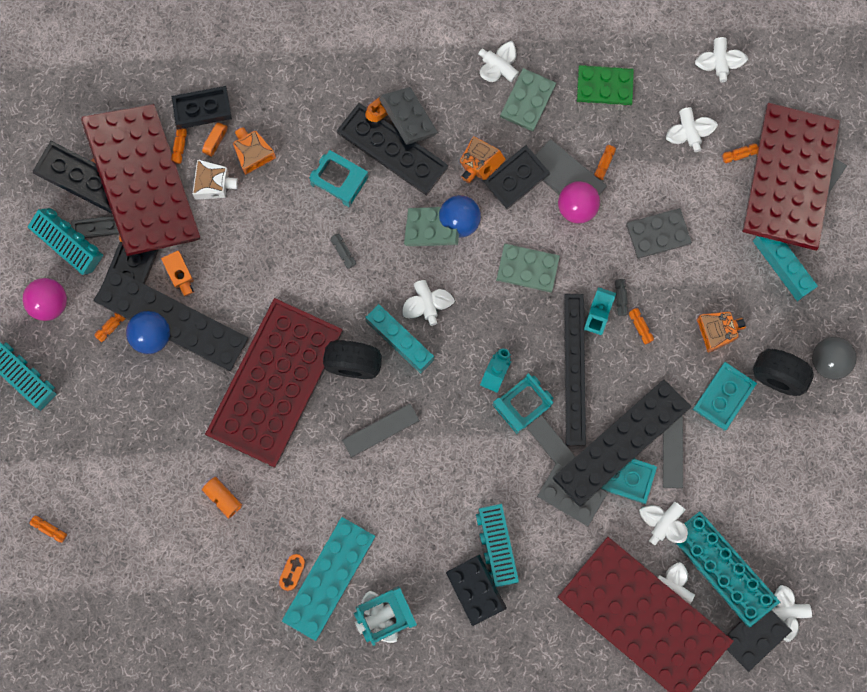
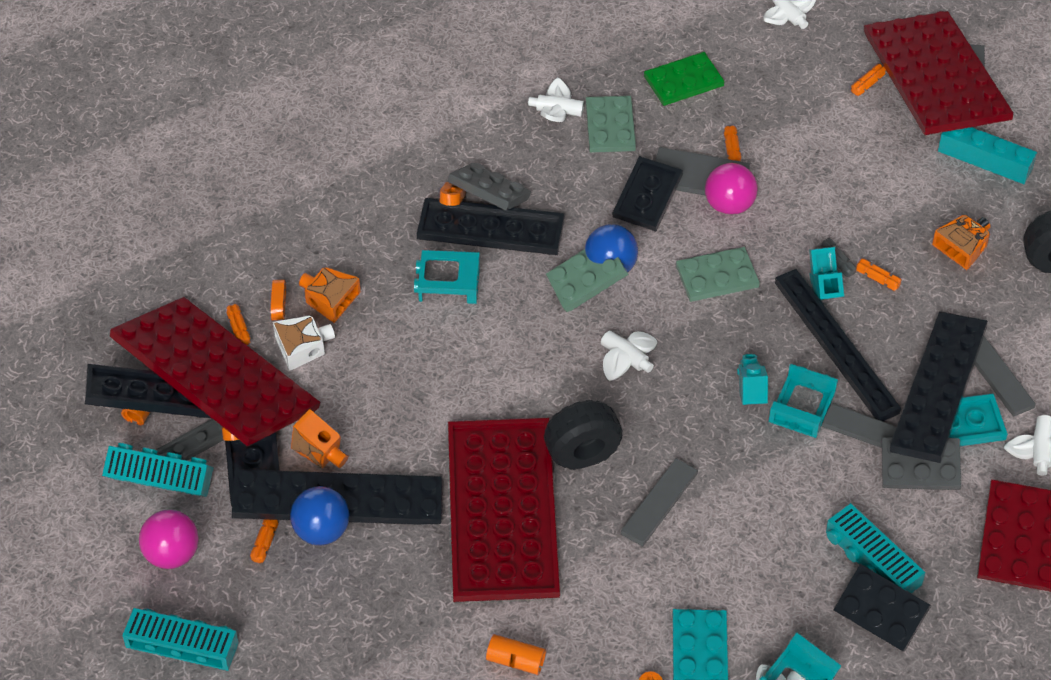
camera: 25 degrees left, 25 degrees down
(201, 107) = (244, 275): black plate -> none
(343, 251) = (498, 345): dark grey axle -> none
(399, 338) = (625, 397): teal brick -> none
(480, 160) = (598, 192): torso -> none
(658, 233) = (835, 184): dark grey plate -> none
(690, 129) = (803, 80): white plant -> none
(724, 396) = (1015, 298): teal plate -> none

